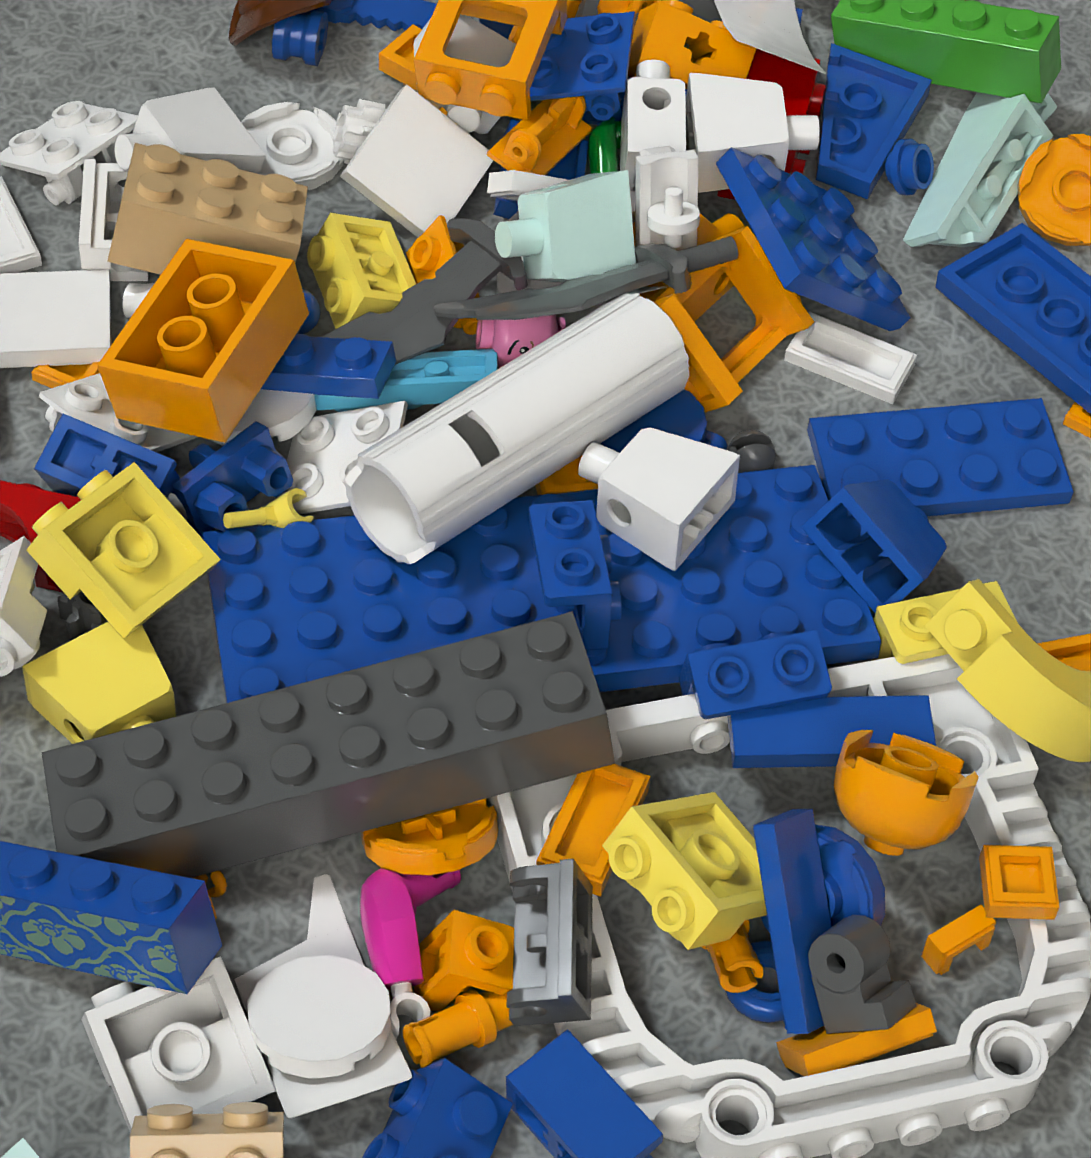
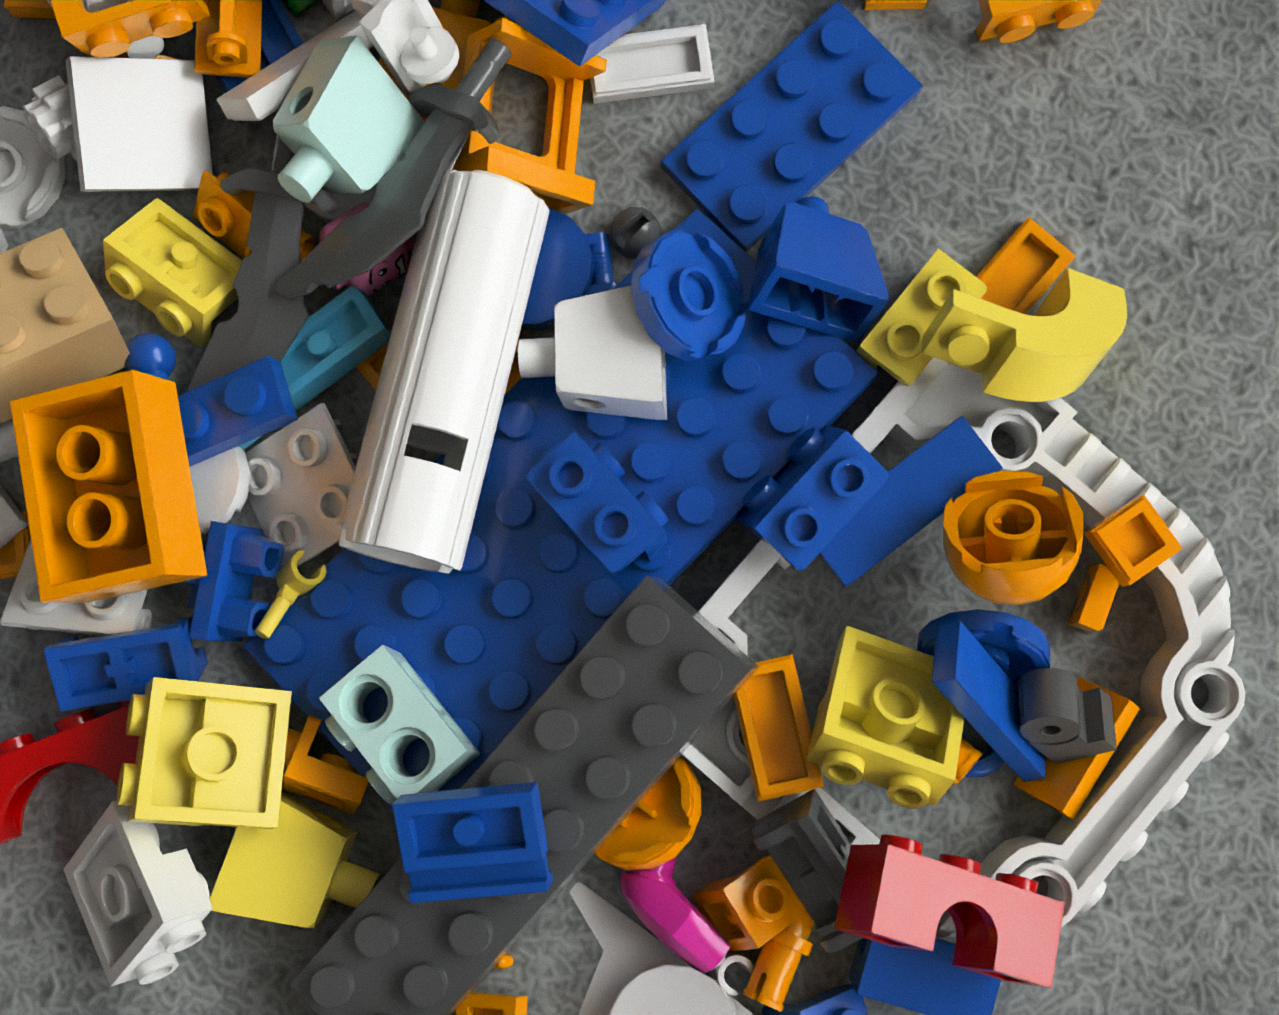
camera: 35 degrees left, 30 degrees up
(186, 648) = (325, 780): none -> light orange bracket
(285, 619) = (410, 715): none -> light aqua brick
(286, 699) = (473, 842): none -> blue plate
(619, 959) = (999, 923): none -> arch
(757, 481) = (688, 295): none -> blue tile

